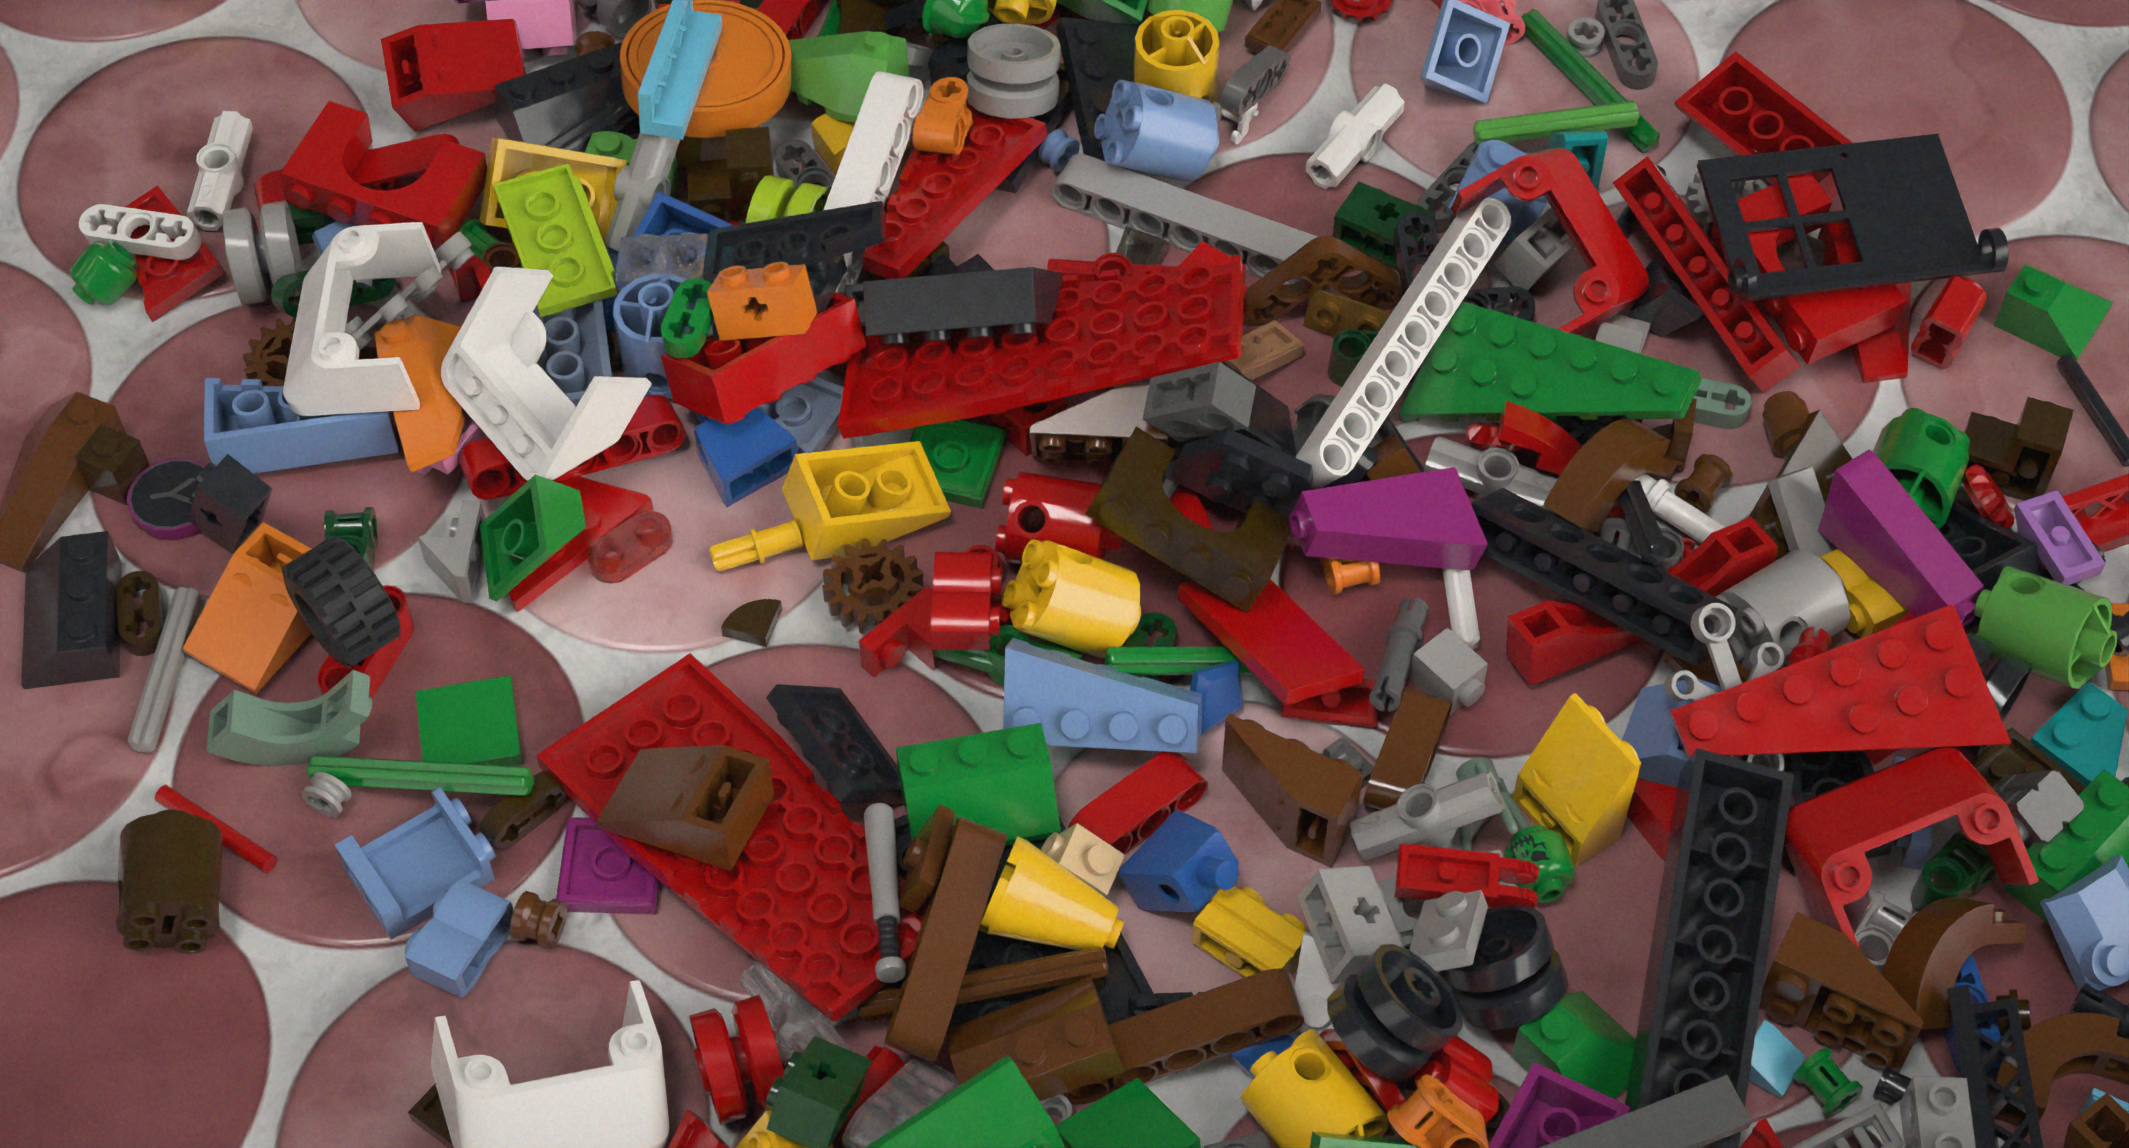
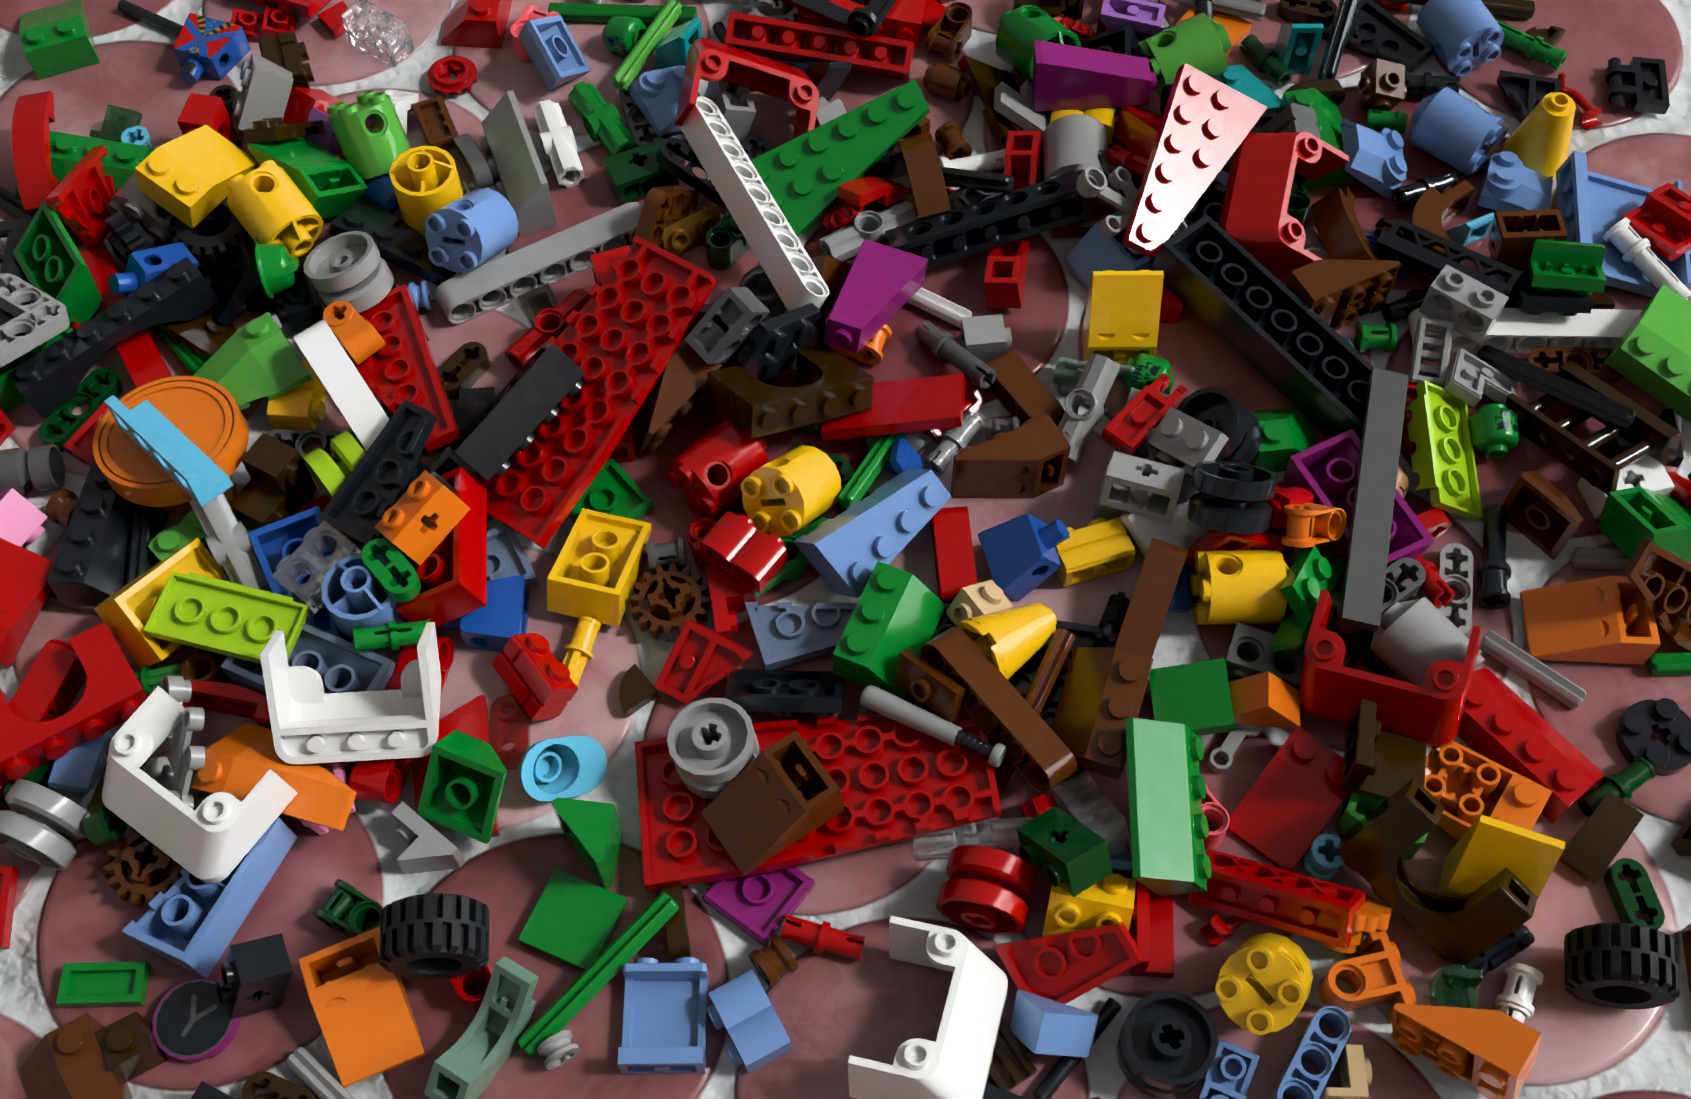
camera: 55 degrees left, 5 degrees up
(162, 409) = (103, 984): none -> green tile
(550, 680) = (594, 833): none -> green slope
(596, 950) = (822, 937): none -> red pin
(613, 609) = (562, 767): none -> medium azure piece
(627, 364) = (387, 636): none -> green pin
(696, 523) = (535, 676): none -> red brick
(714, 702) = (711, 745): none -> light grey wheel
(818, 649) = (699, 662): none -> red wing
(920, 707) = (796, 633): none -> sand blue wing
(923, 543) = (666, 553): none -> dark grey bush
(1005, 242) = (465, 372): none -> dark brown beam
(1285, 124) = (517, 166): none -> light grey slope
(1294, 723) = (953, 442): none -> light grey pin
(1421, 150) = (601, 119): none -> green piece
(1551, 92) = (622, 34): none -> green head
(1867, 386) = (951, 31): none -> reddish brown piece

